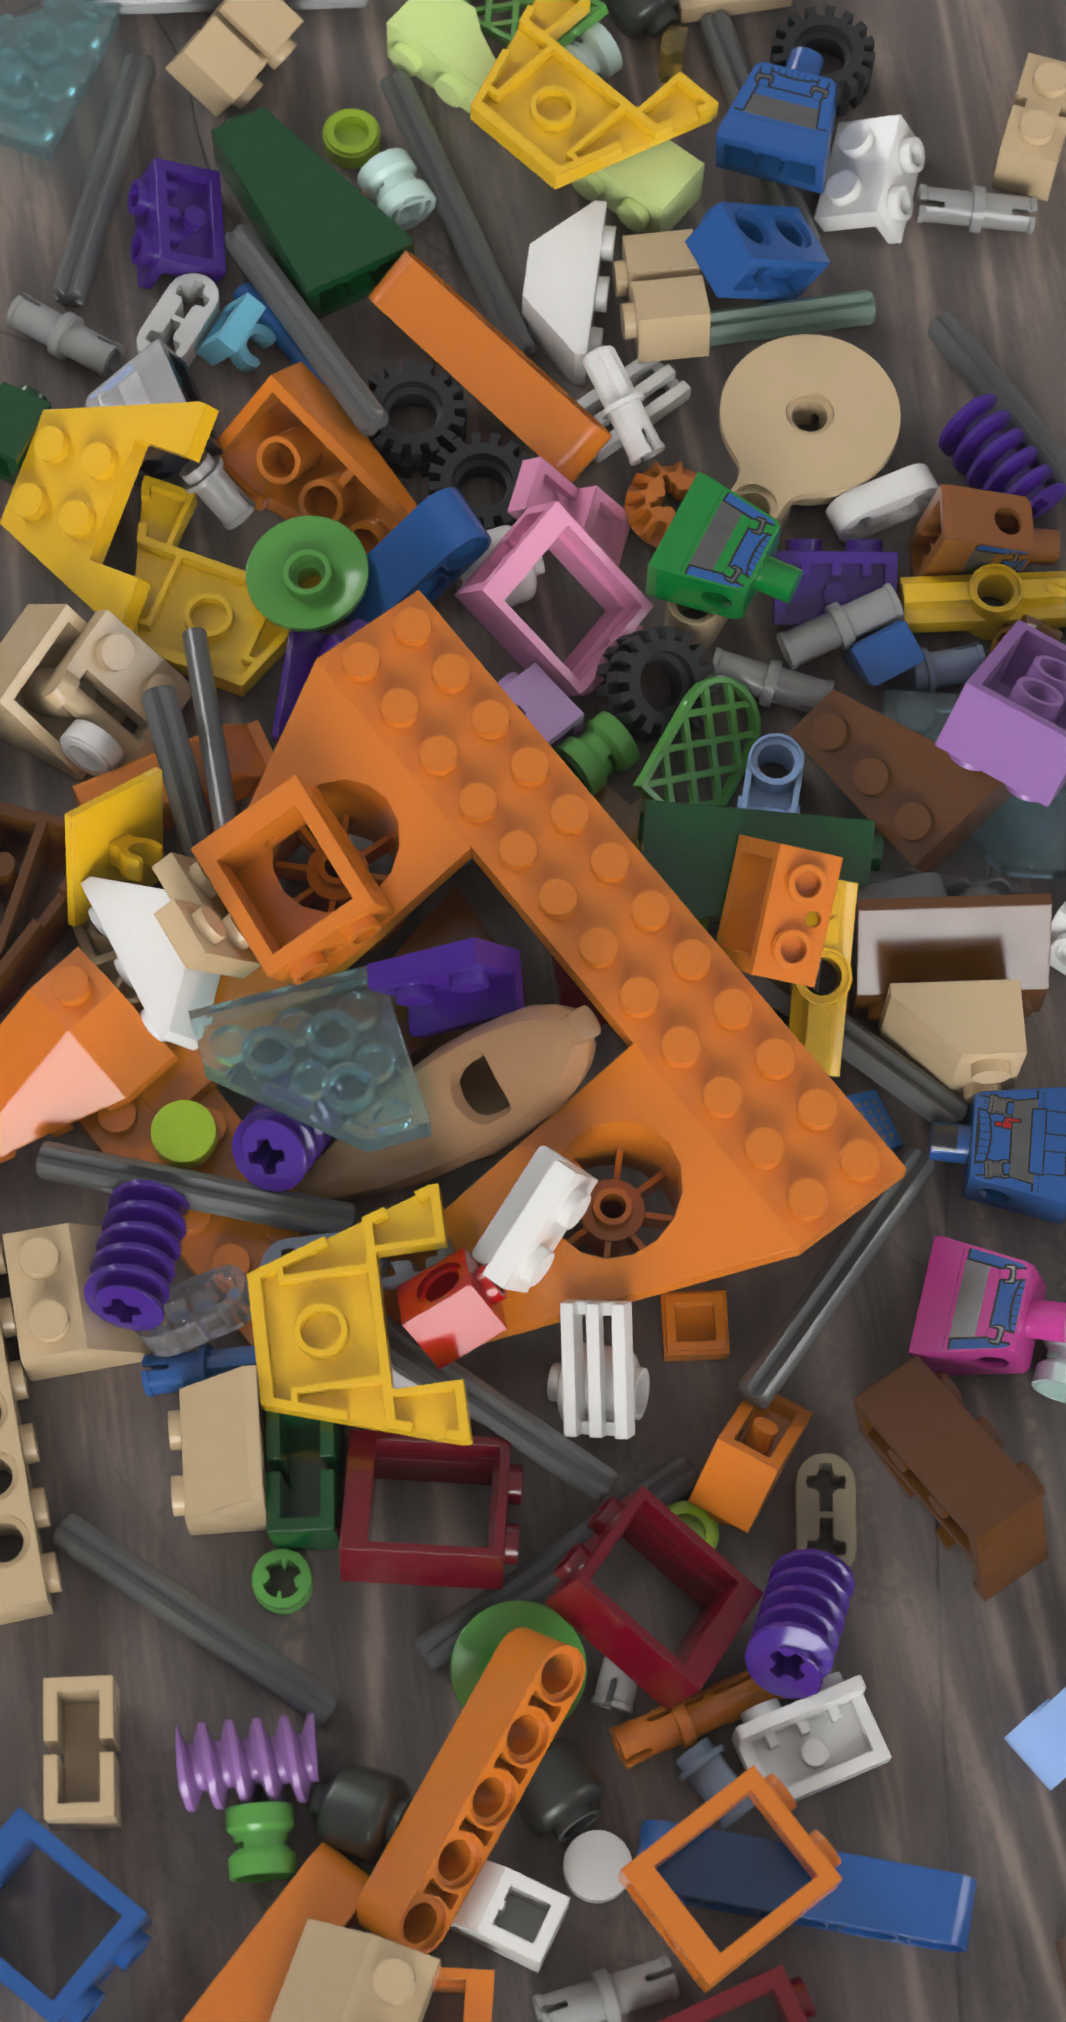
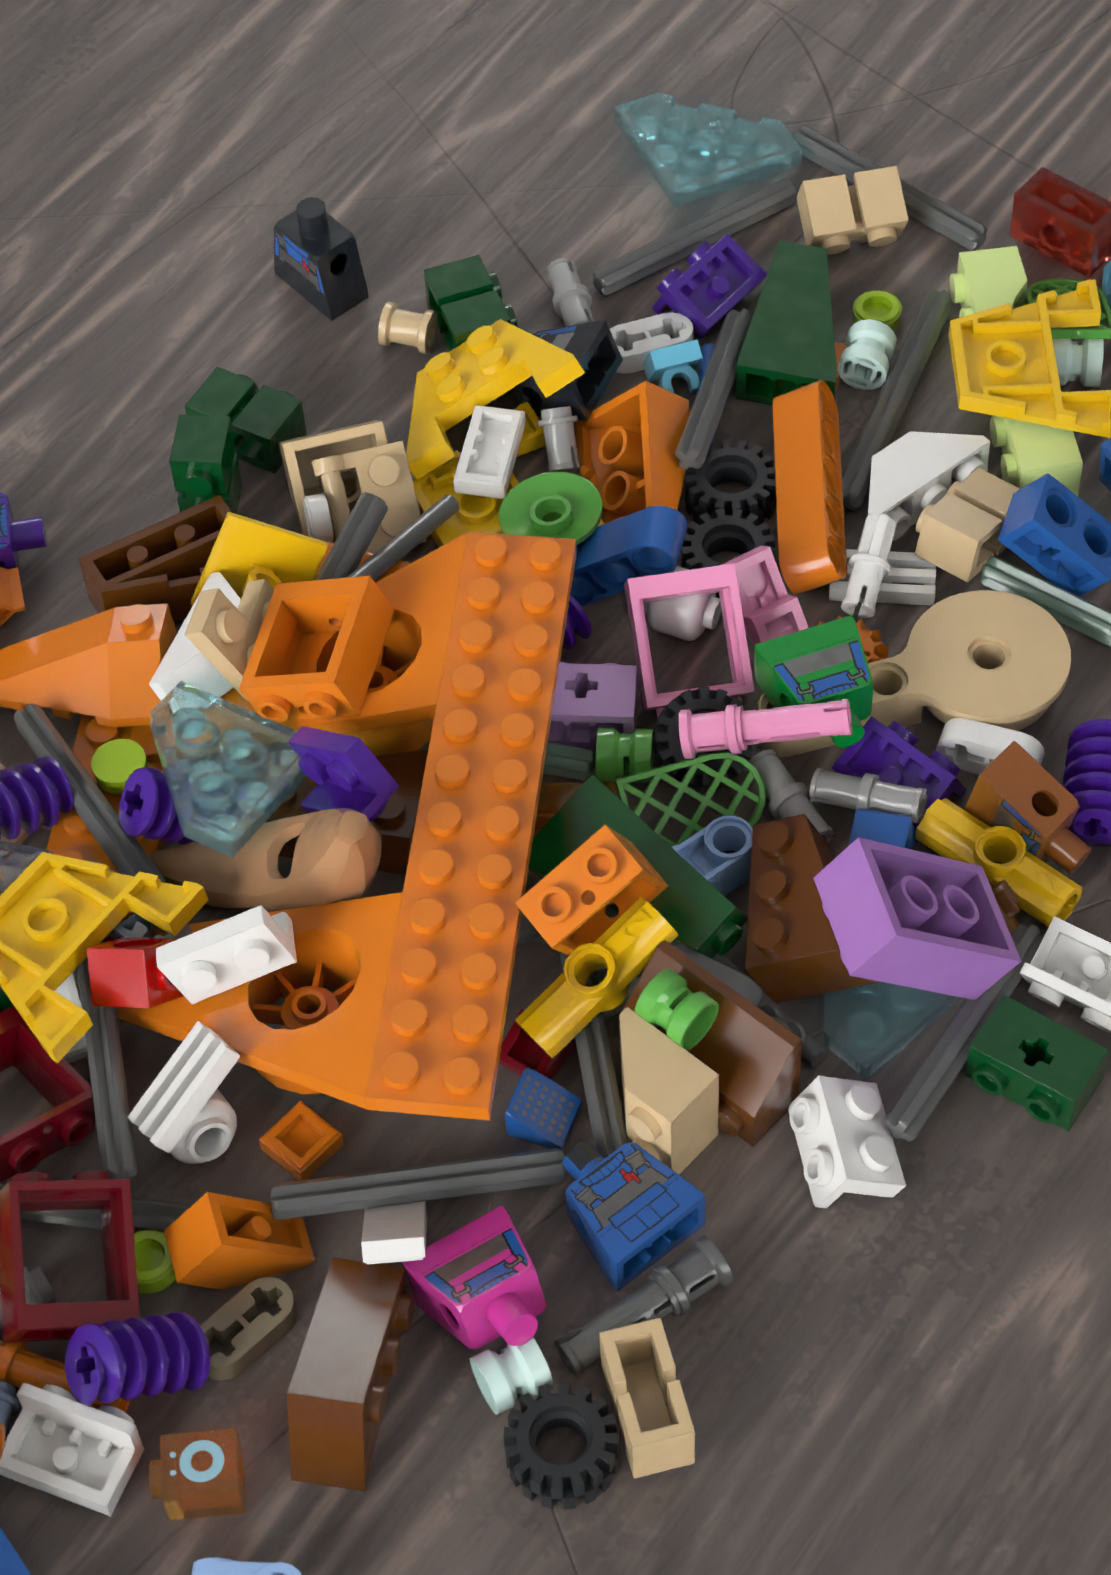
camera: 50 degrees right, 15 degrees down
(179, 554) = (489, 452): none -> white plate
(707, 656) = (738, 728): none -> bright pink pin
(877, 1333) = (394, 1233): none -> white tile
(930, 951) = (677, 1009): none -> bright green wheel
(930, 1664) = (199, 1474): none -> clear orange brick

